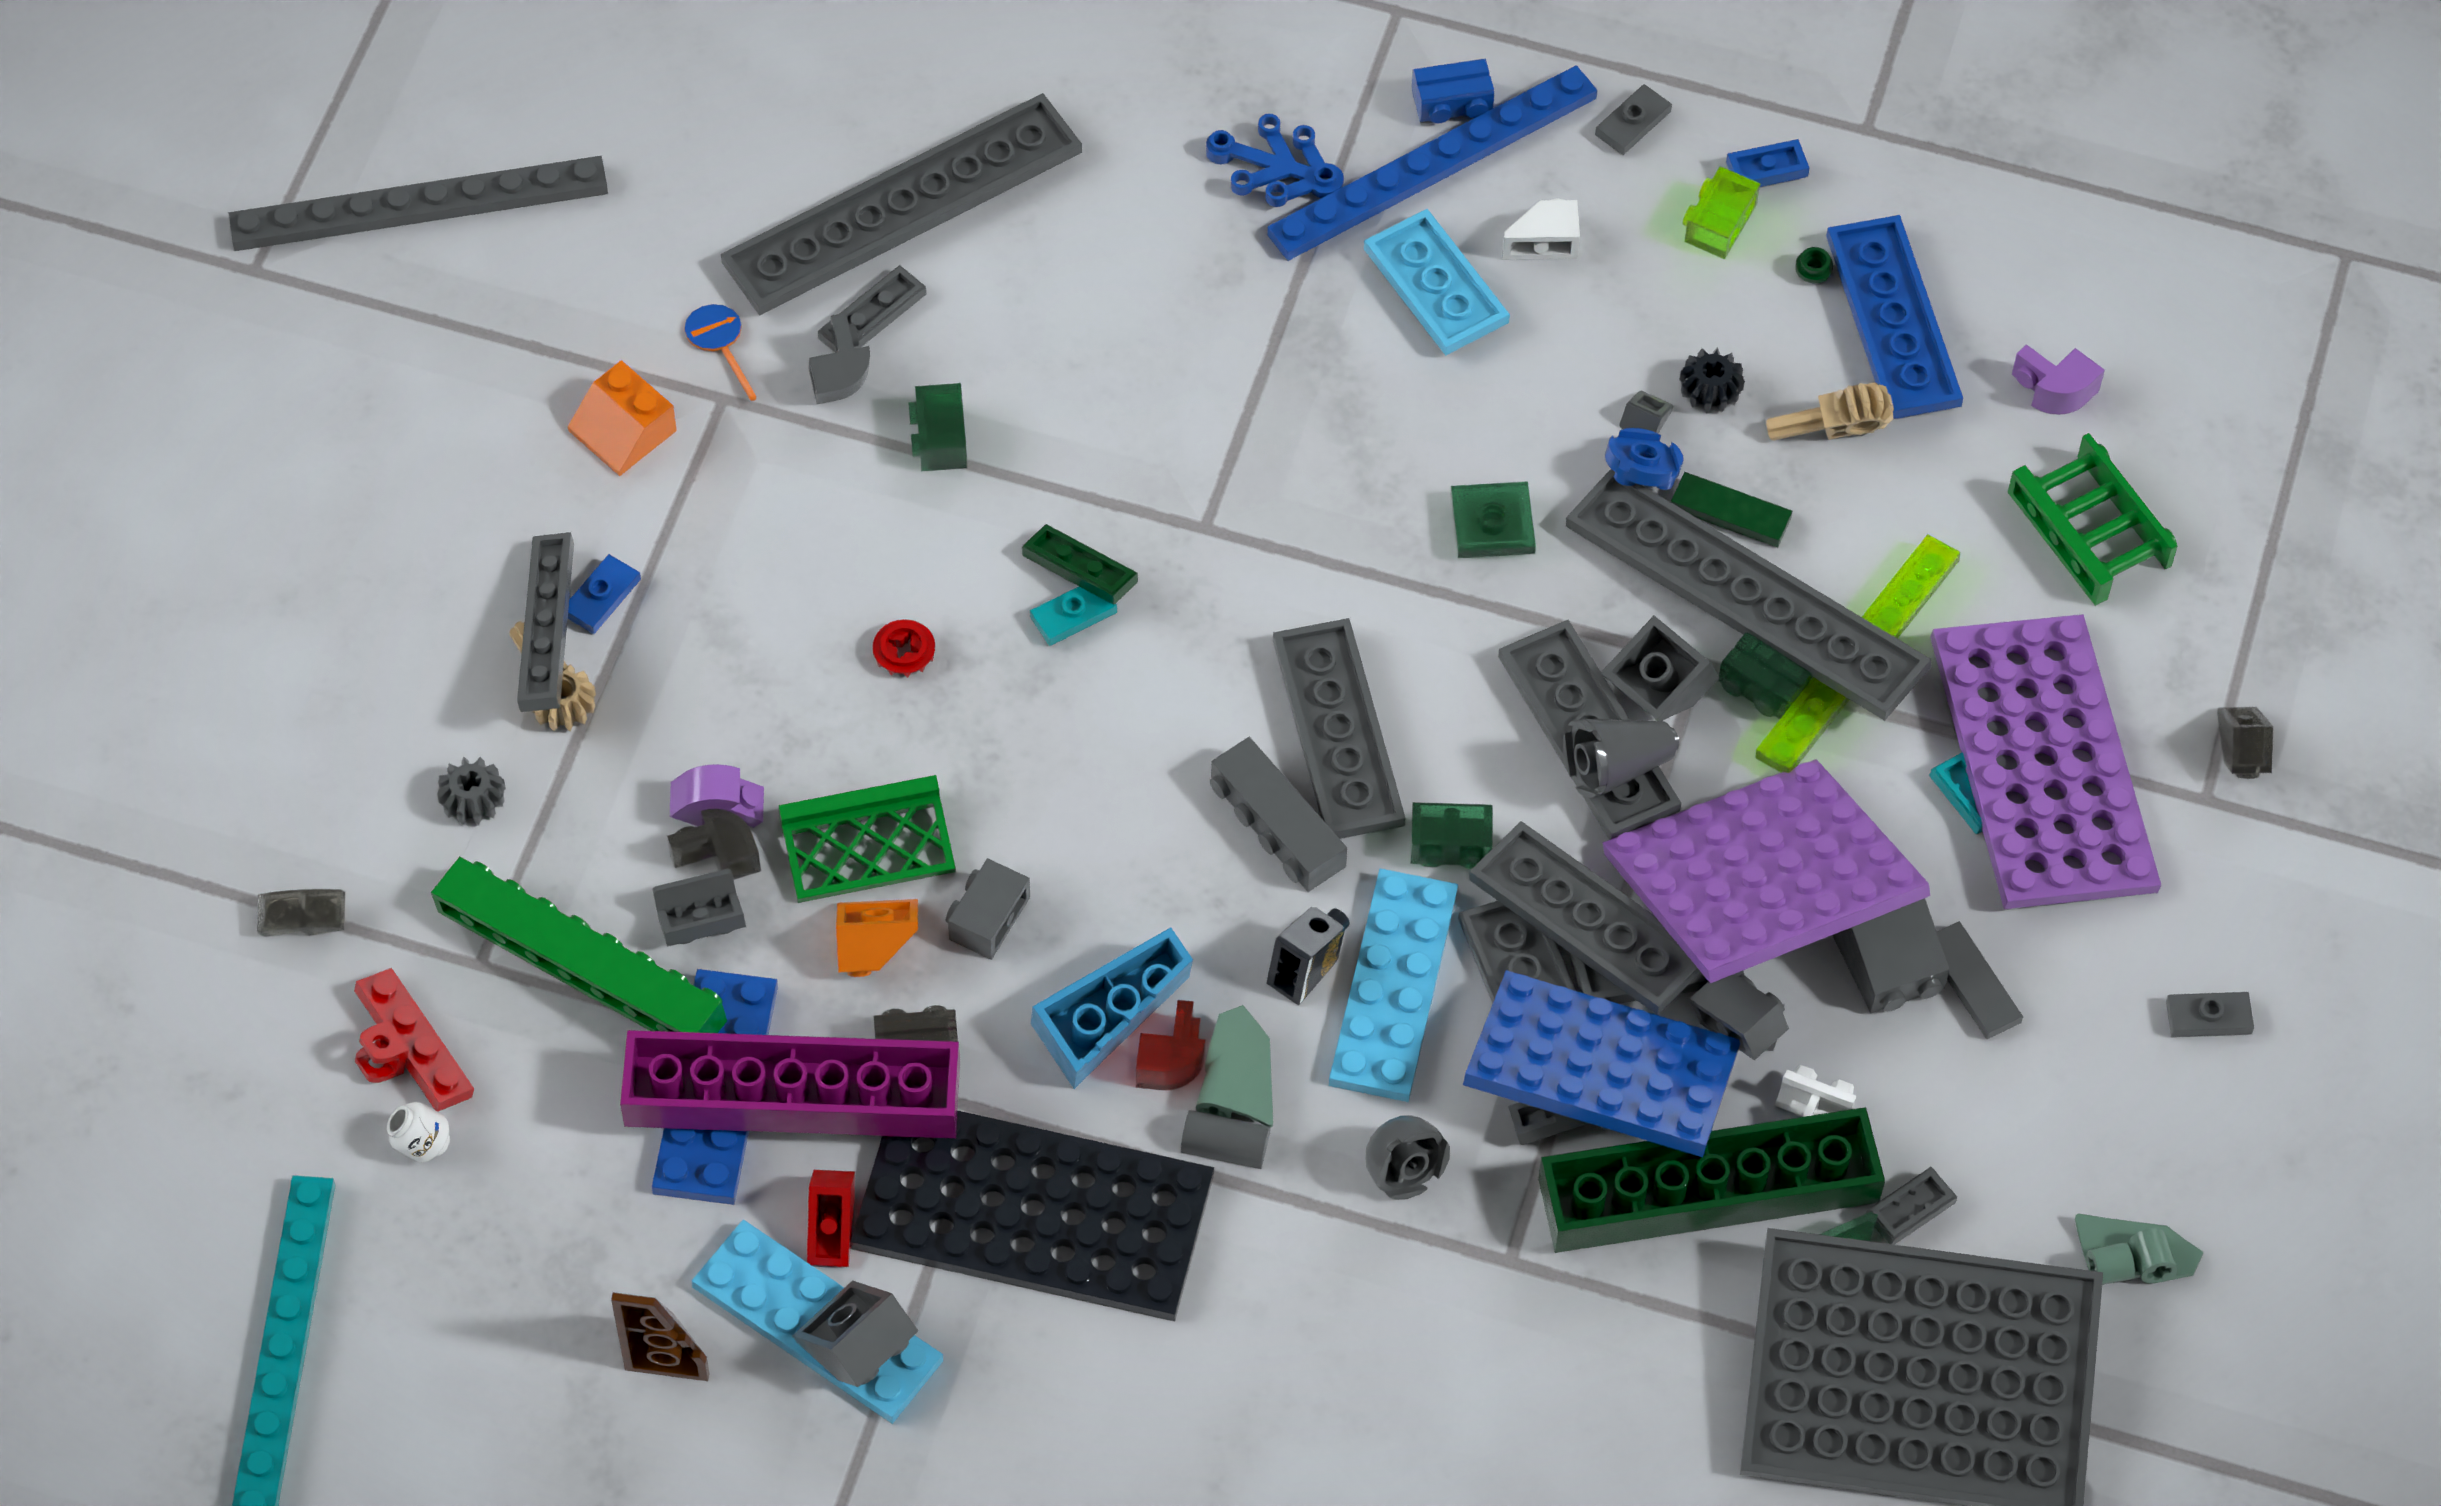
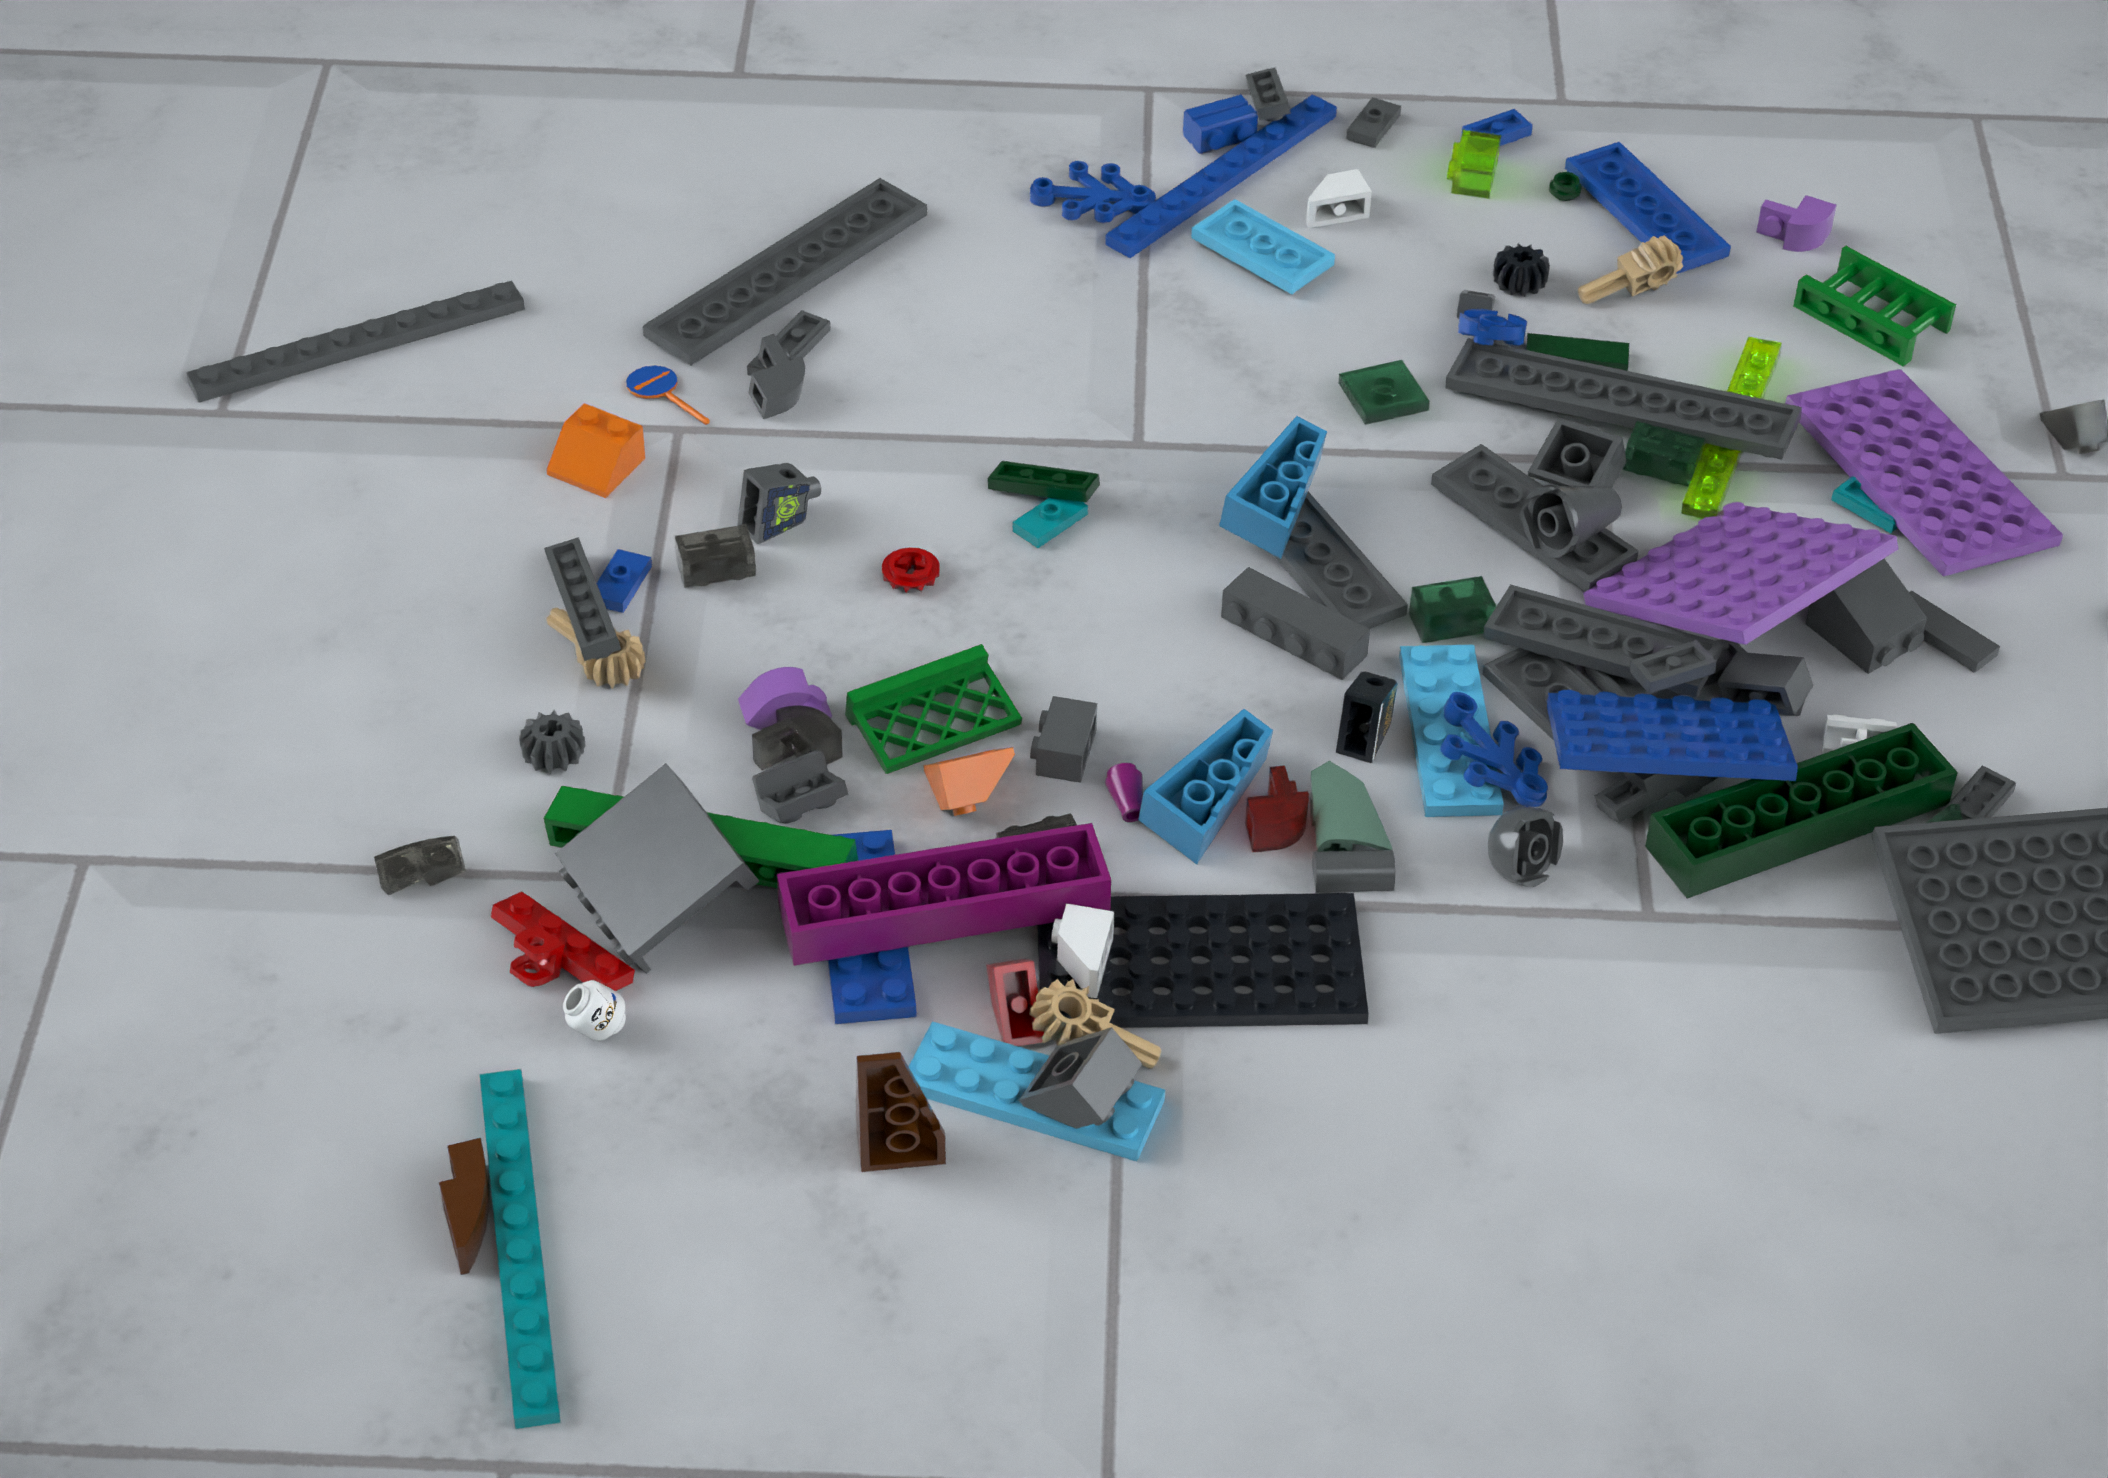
camera: 15 degrees left, 15 degrees down
(240, 1318) = (466, 1201): none -> reddish brown slope
(519, 978) = (651, 864): none -> panel
(704, 588) = (715, 556): none -> clear smoke brick
(787, 530) = (775, 499): none -> dark grey torso
(890, 1269) = (1087, 1018): none -> tan gear
(914, 1174) = (1084, 944): none -> white slope
(940, 427) = (881, 410): clear green brick -> none
(1029, 985) = (1126, 789): none -> magenta cone
(1309, 645) = (1273, 490): none -> dark azure wedge
(1419, 1036) = (1526, 786): none -> blue plant
(1520, 59) = (1267, 94): none -> dark grey plate
(1636, 980) = (1672, 666): none -> dark grey plate

